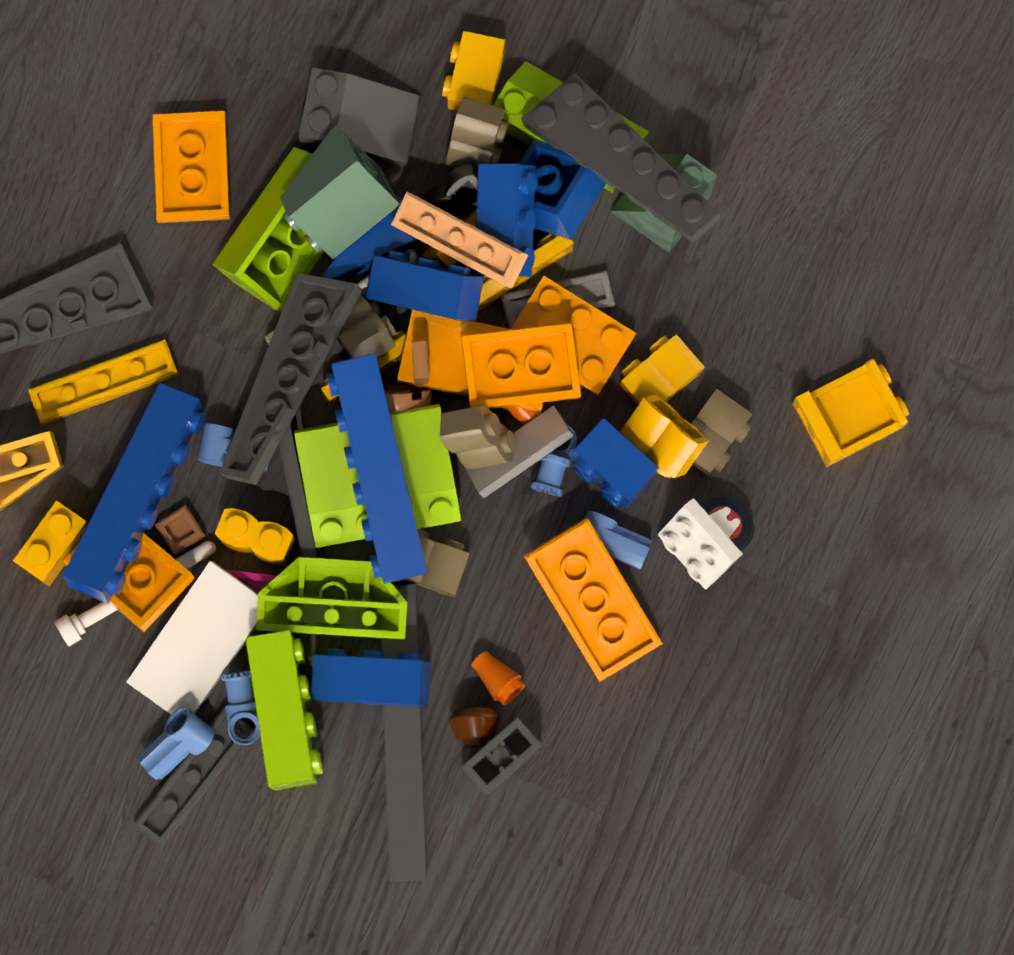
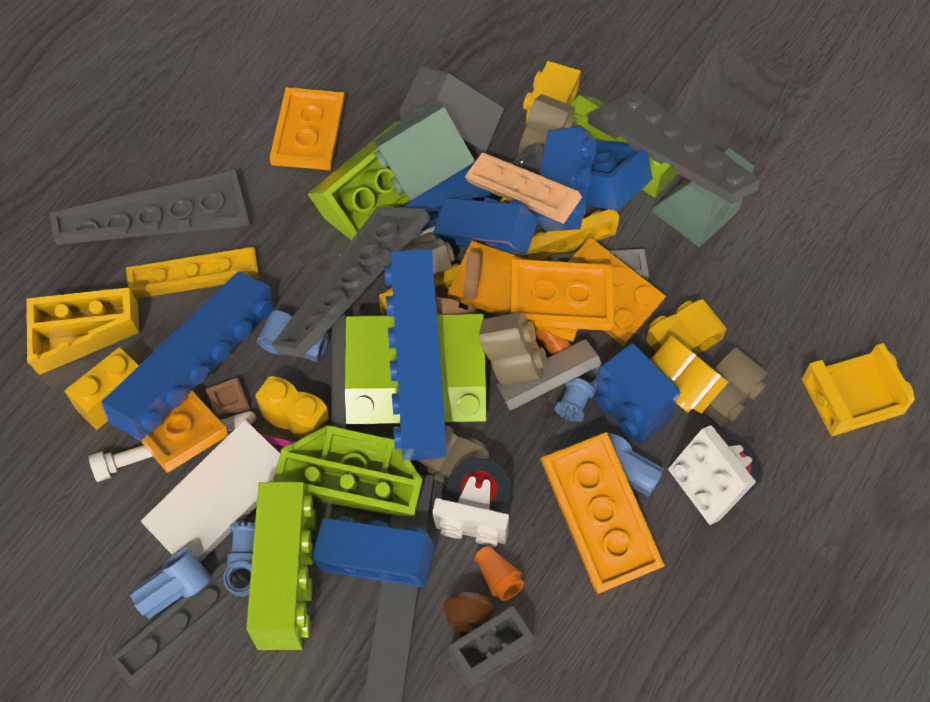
camera: 10 degrees right, 20 degrees down
(465, 607) = (476, 502): none -> white plate

